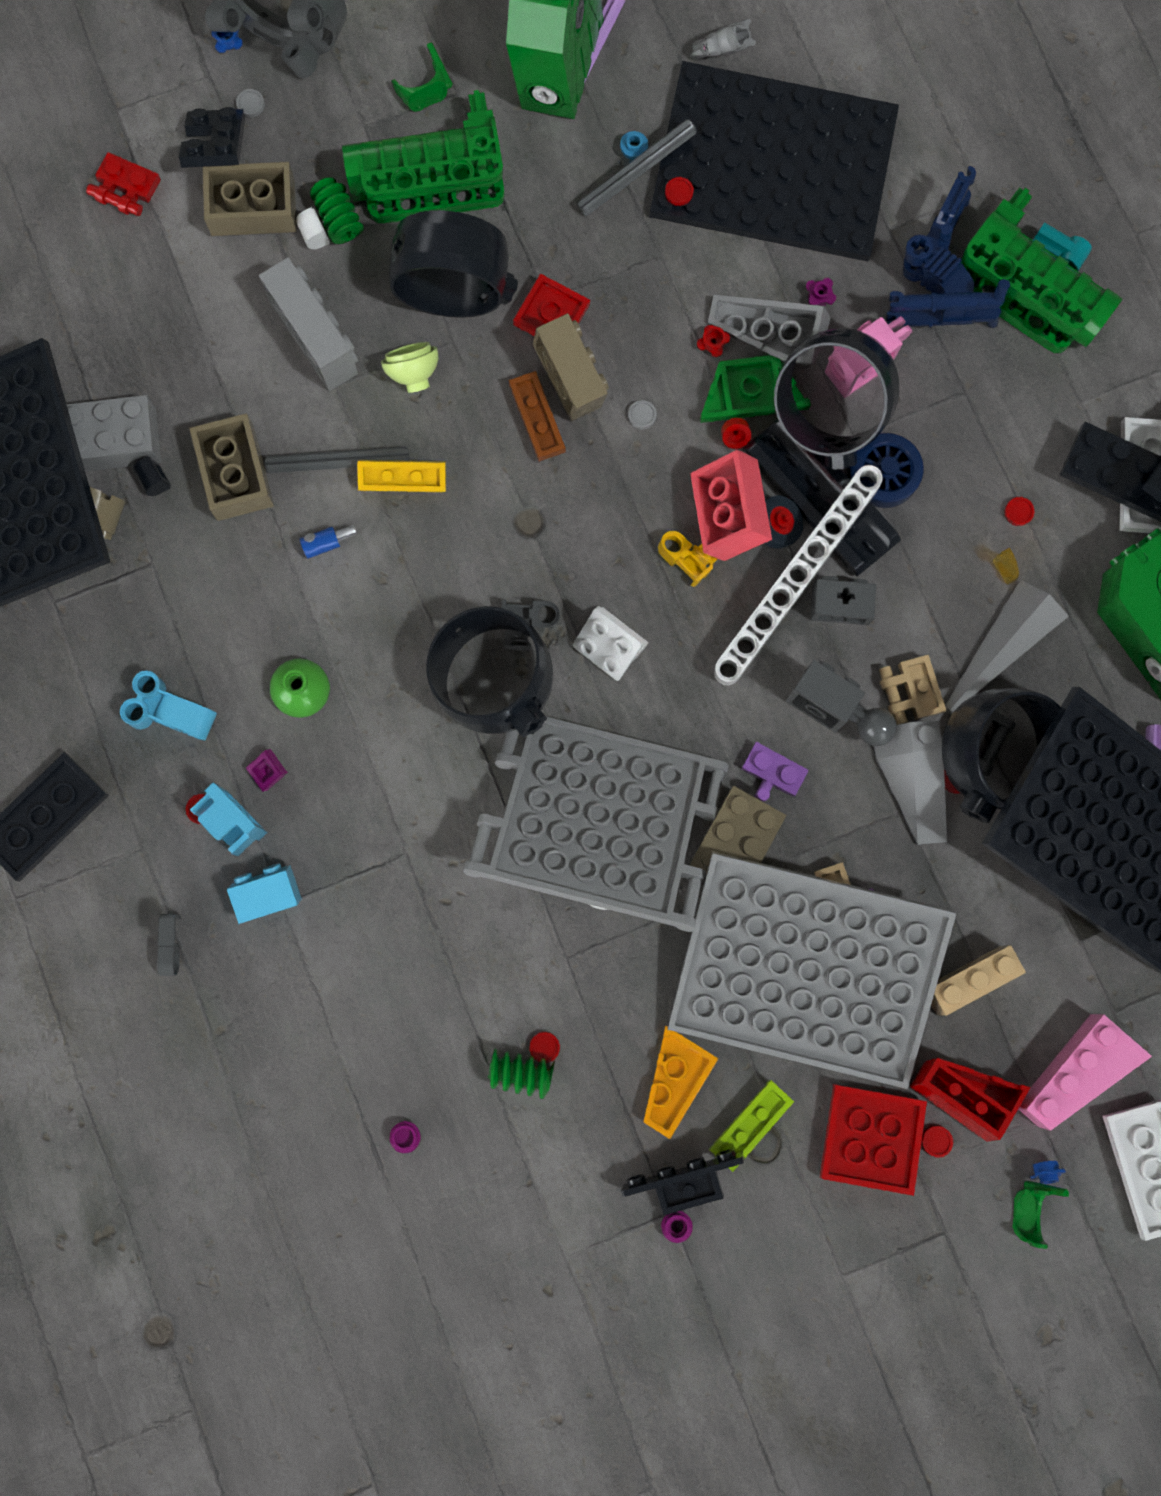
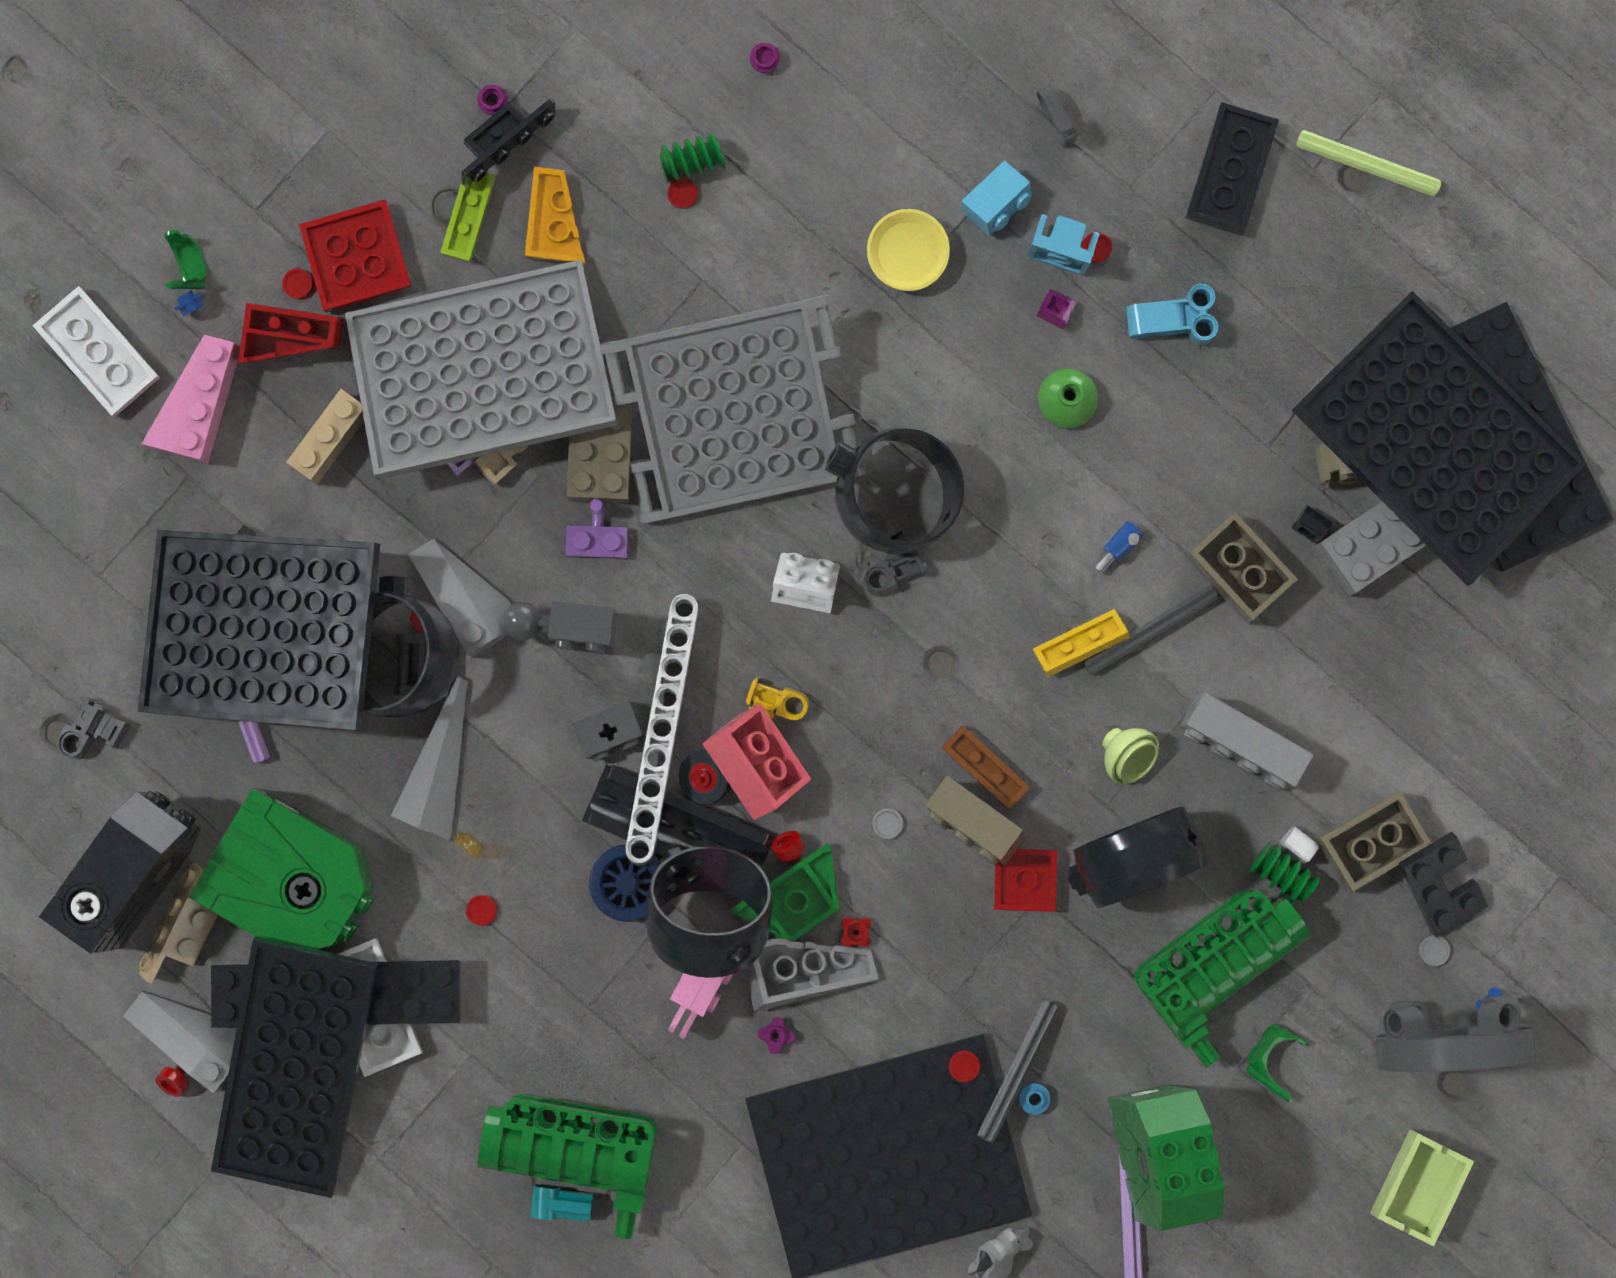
camera: 160 degrees right, 5 degrees up
(127, 178) = (1506, 809): red plate -> none
(368, 887) = (908, 250): none -> light yellow piece
(920, 686) = (497, 685): tan plate -> none
(944, 275) = (667, 1109): dark blue piece -> none

